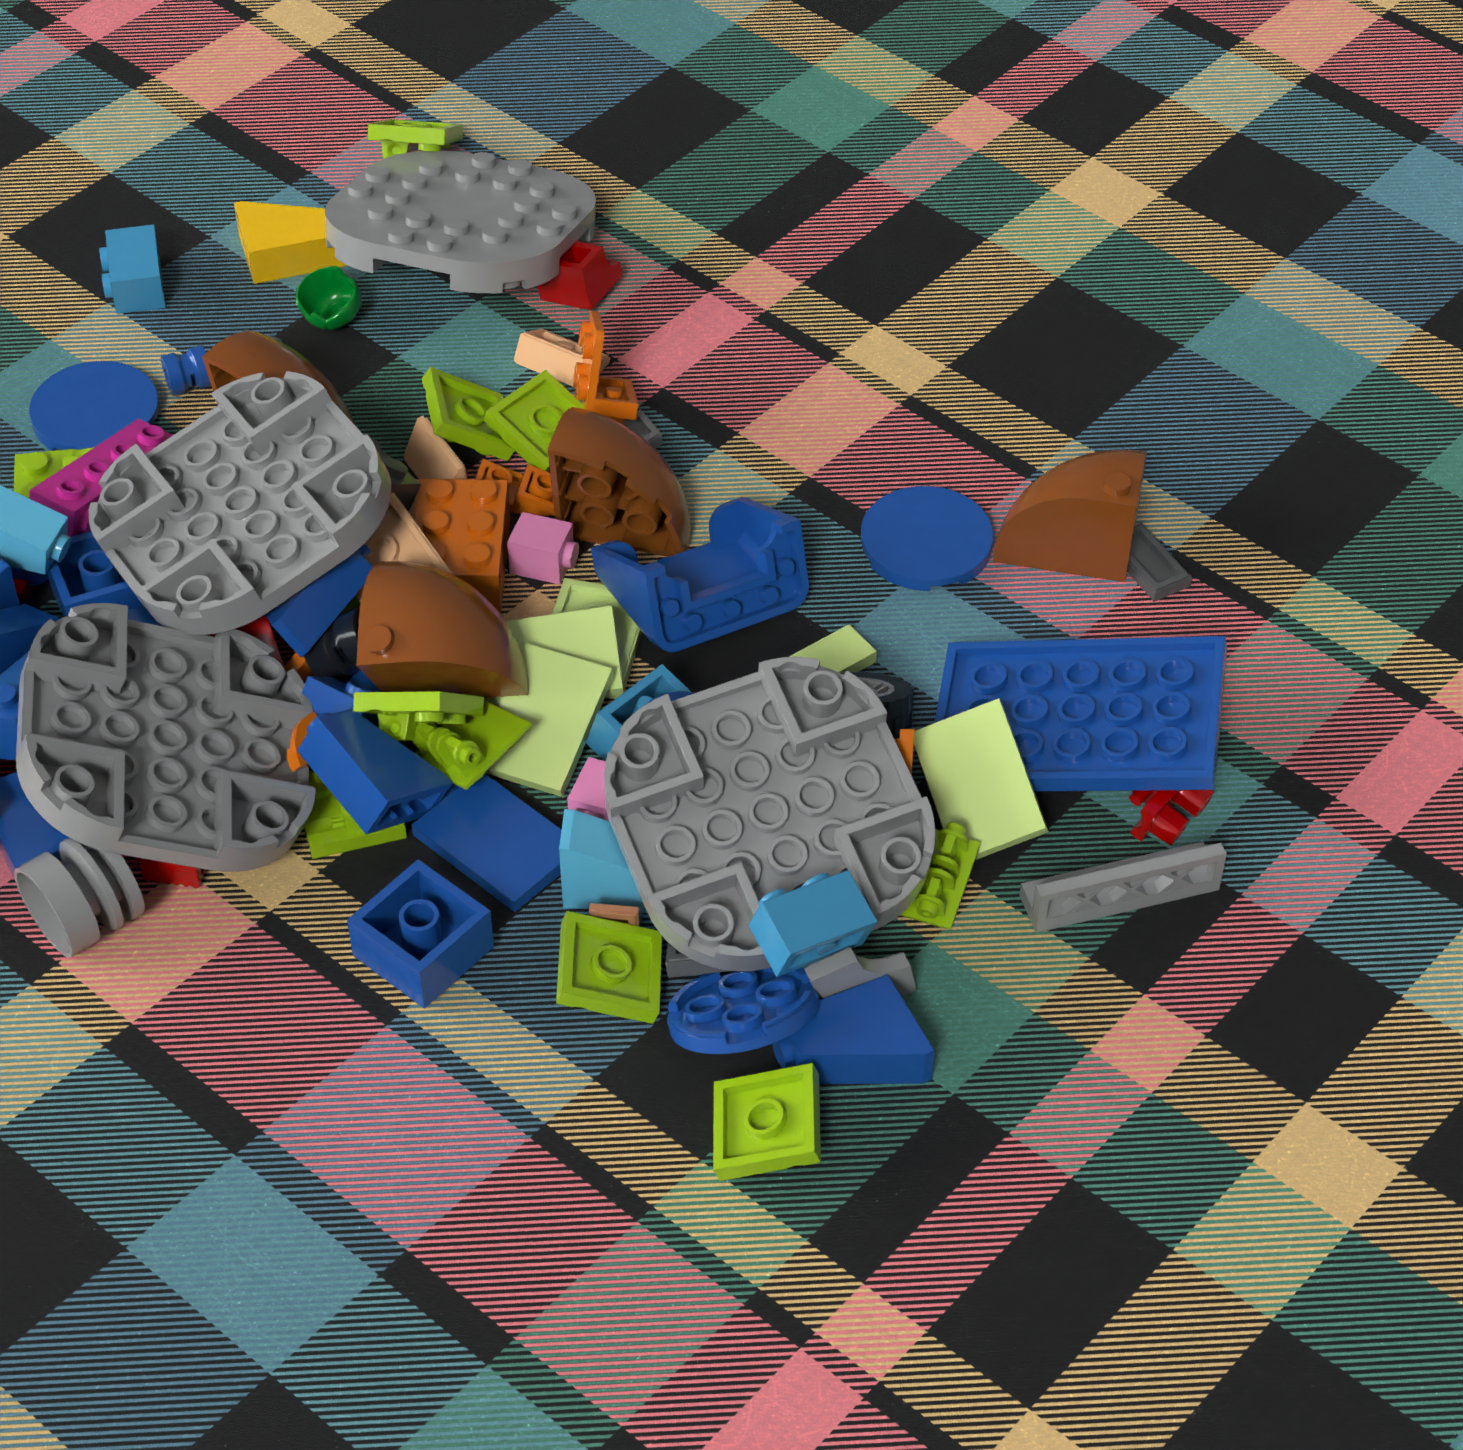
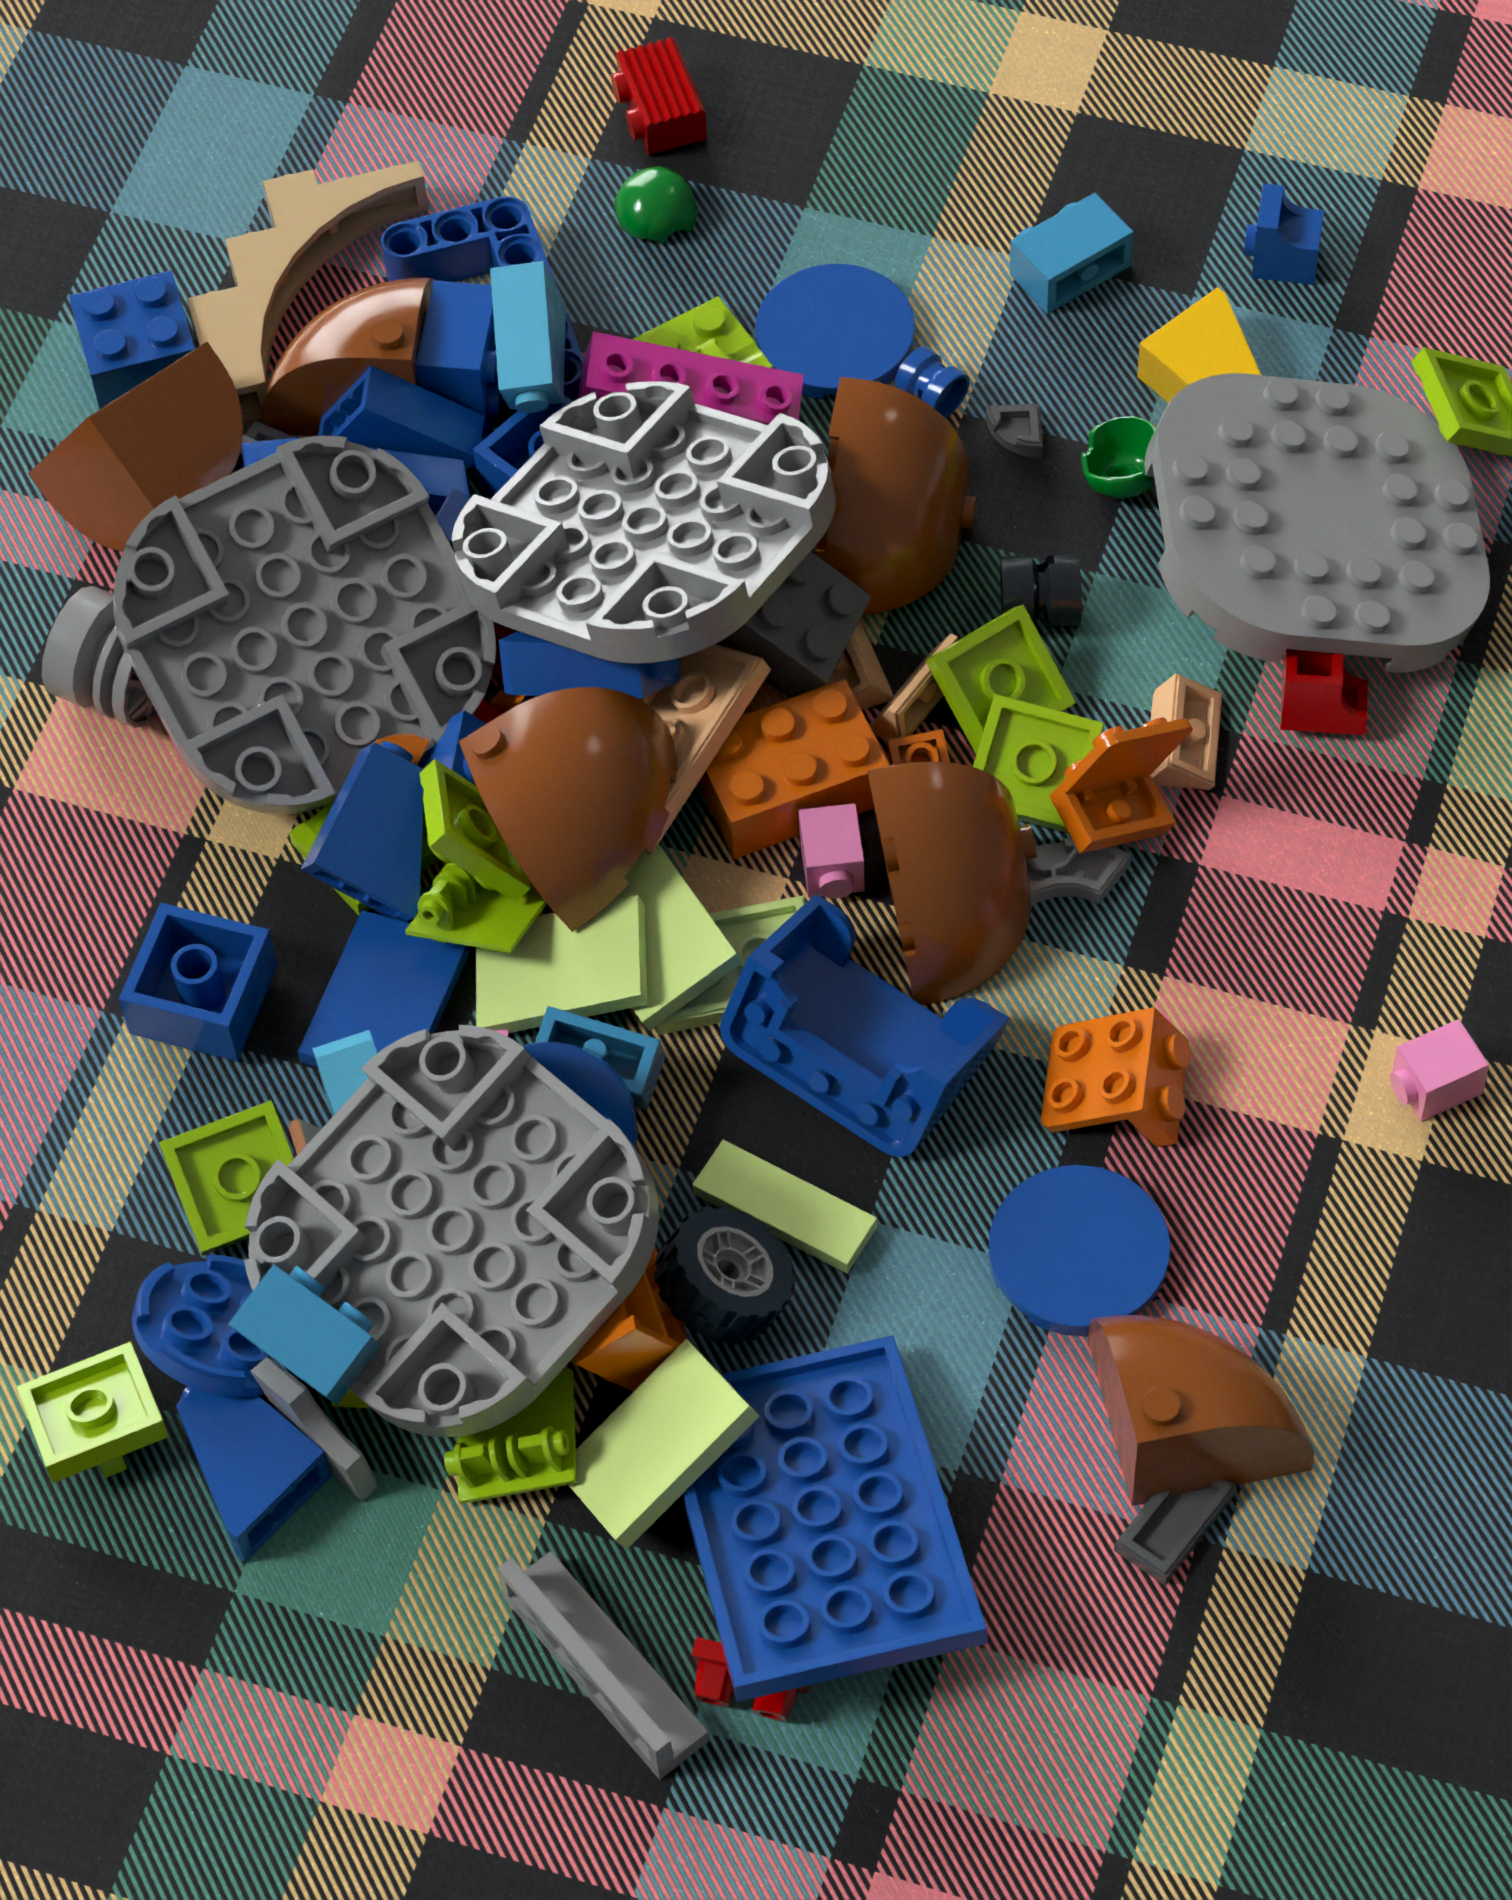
camera: 70 degrees right, 10 degrees up
(208, 169) = (1284, 239): none -> blue brick
(399, 376) = (1045, 589): none -> black wheel
(808, 471) = (1116, 1072): none -> orange bracket
(897, 325) = (1438, 1070): none -> bright pink brick

